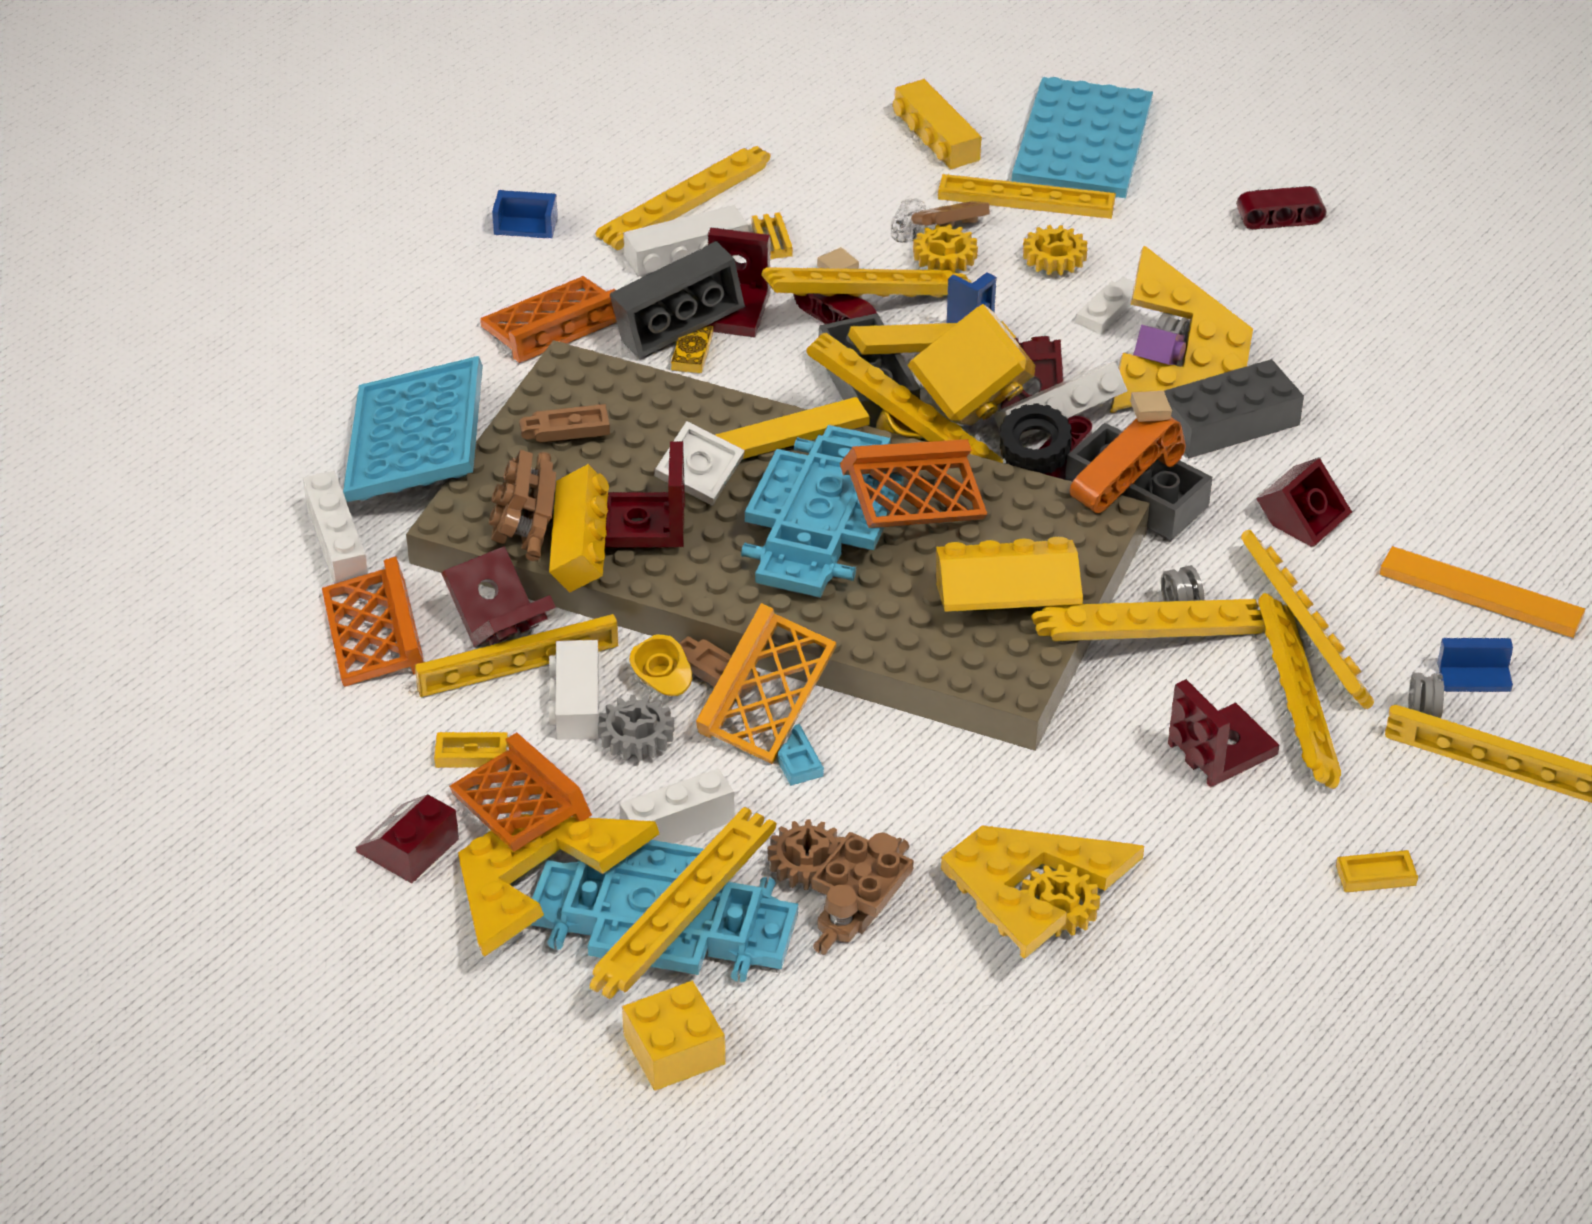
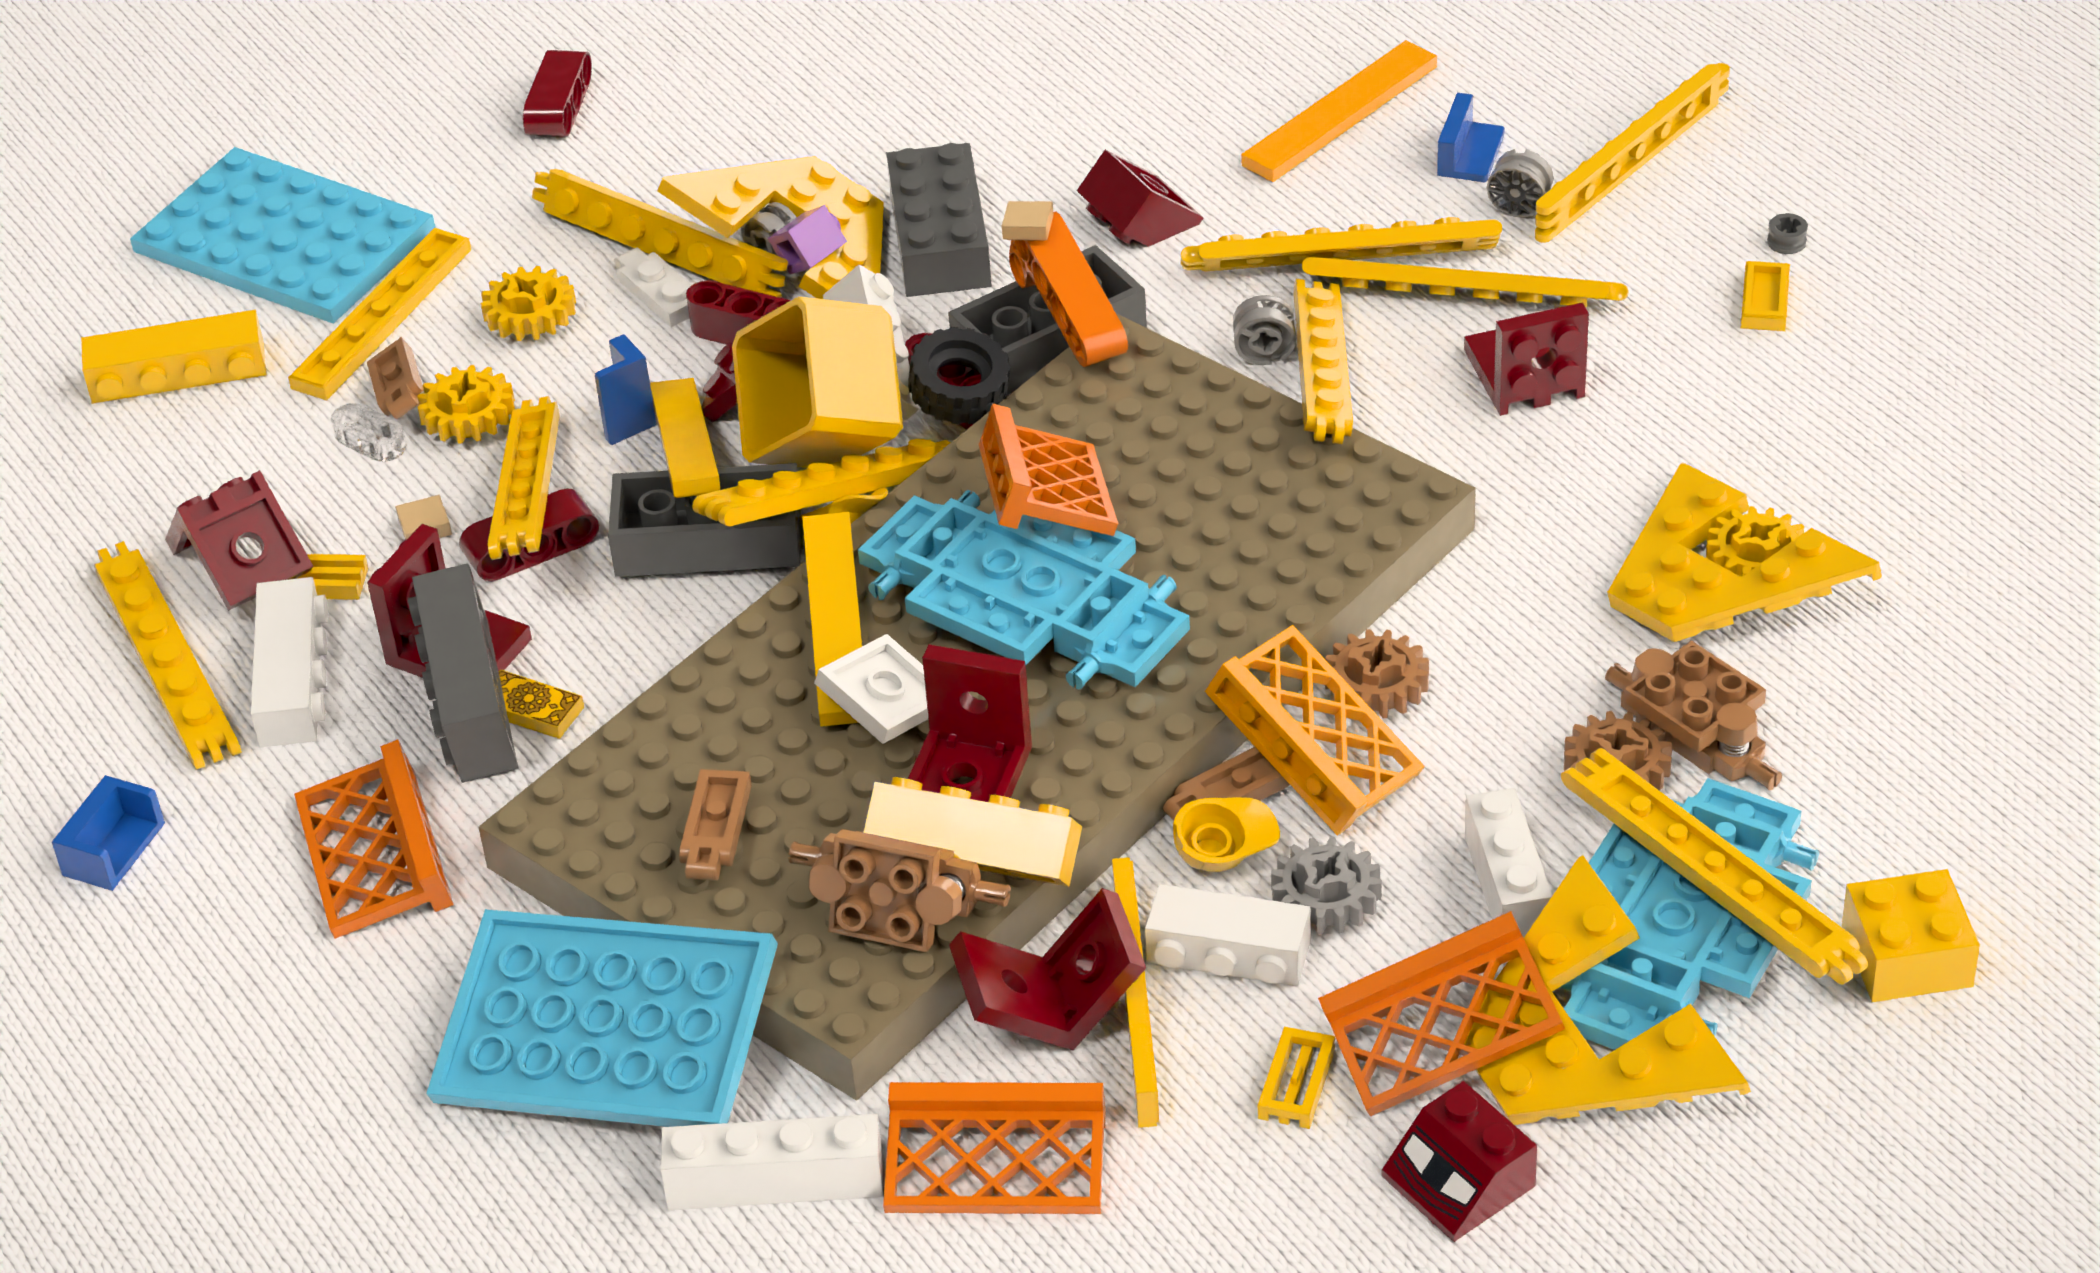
camera: 70 degrees left, 0 degrees up
(779, 178) = (232, 513): none -> dark red bracket
(799, 758) = (1433, 741): medium azure tile -> none
(848, 716) = (1382, 670): none -> medium nougat gear
(1008, 574) = (1246, 437): yellow slope -> none
(1083, 341) = (723, 309): none -> dark red beam
(1167, 244) = (659, 232): none -> yellow hinge
(1460, 881) = (1787, 233): none -> dark grey bush

